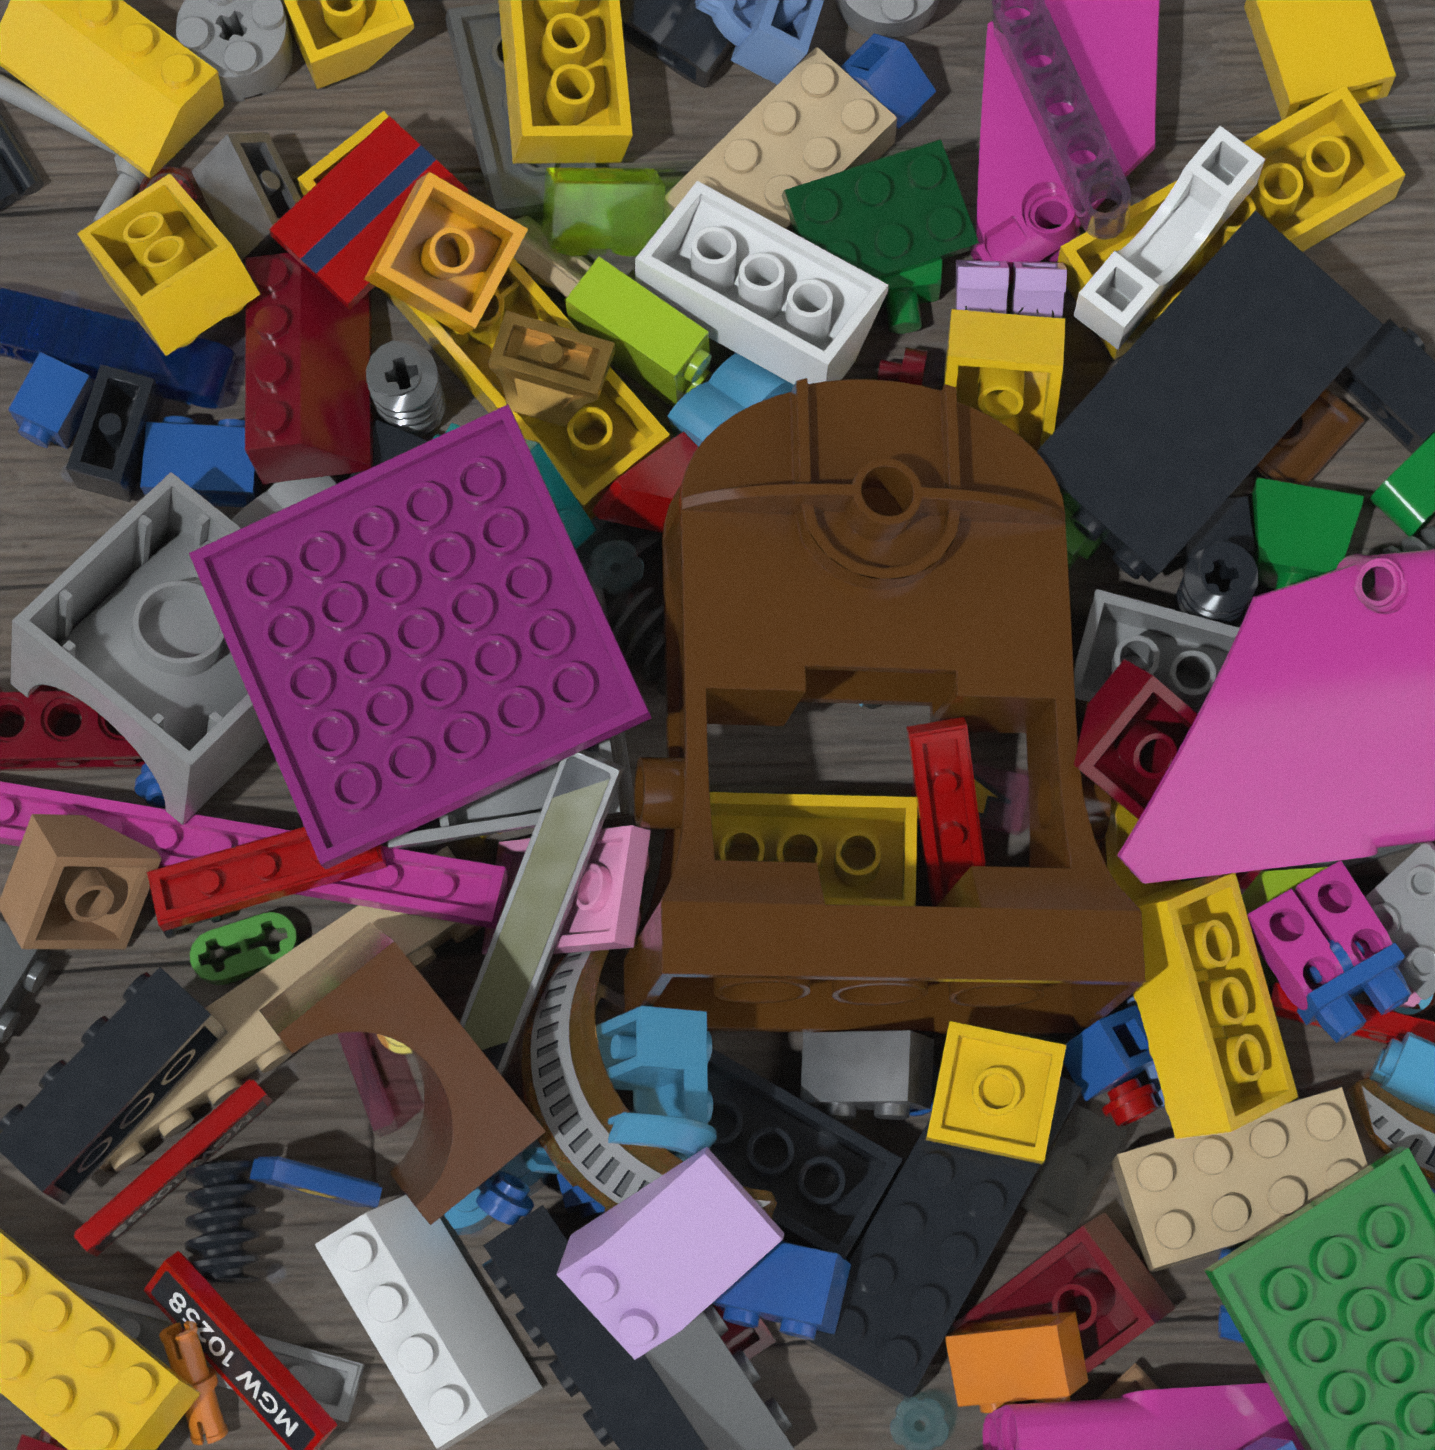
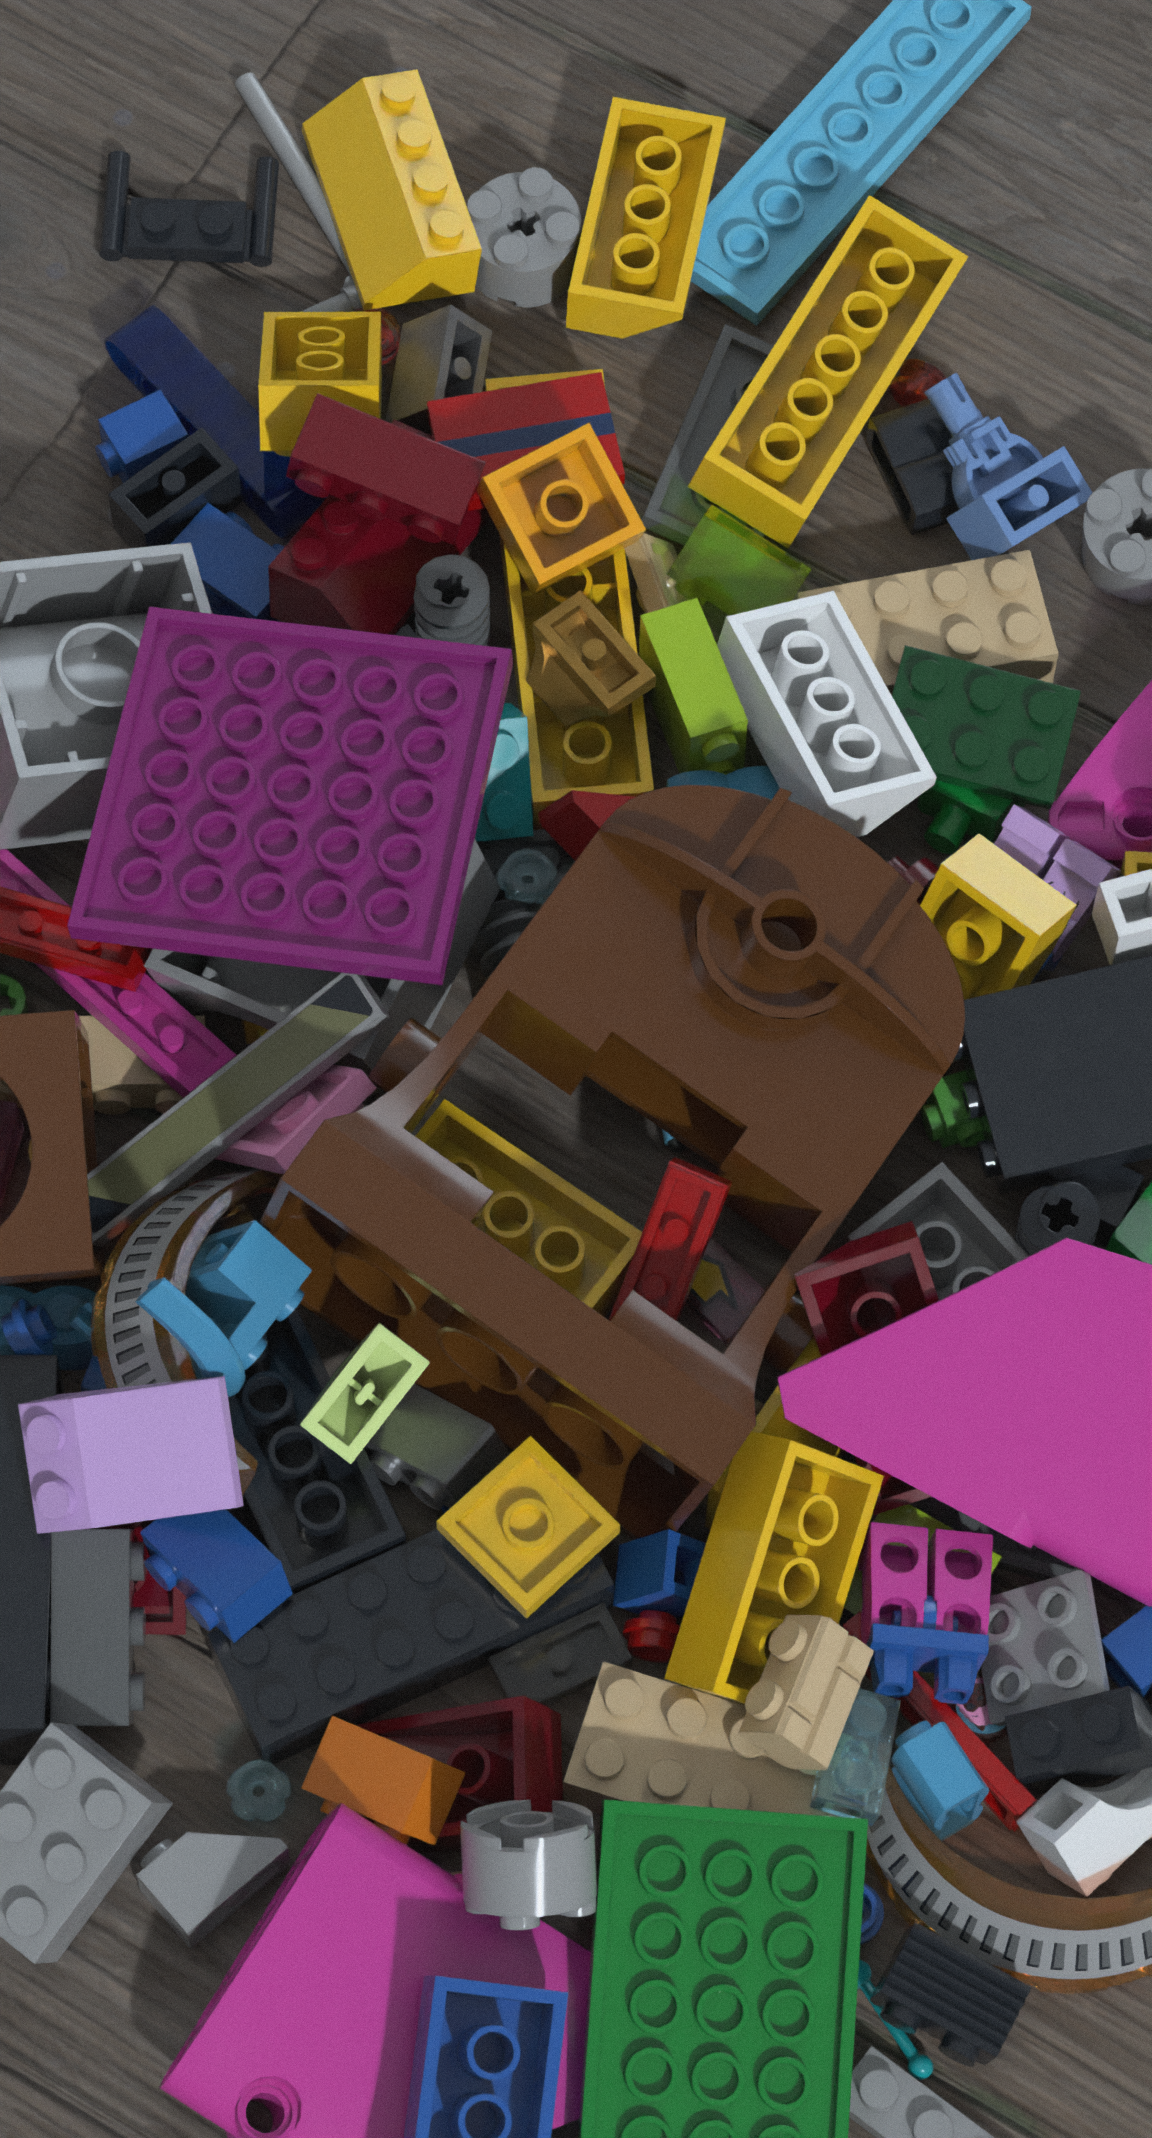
camera: 30 degrees right, 10 degrees down
(285, 313) = (384, 470): none -> dark red brick
(797, 1073) = (364, 1392): none -> yellowish green slope
(890, 76) = (1080, 622): blue brick -> none
(1188, 1358) = (528, 1862): none -> light grey brick
(1297, 1082) = (805, 1691): none -> tan brick
(1357, 1100) = (860, 1763): none -> clear light blue plate

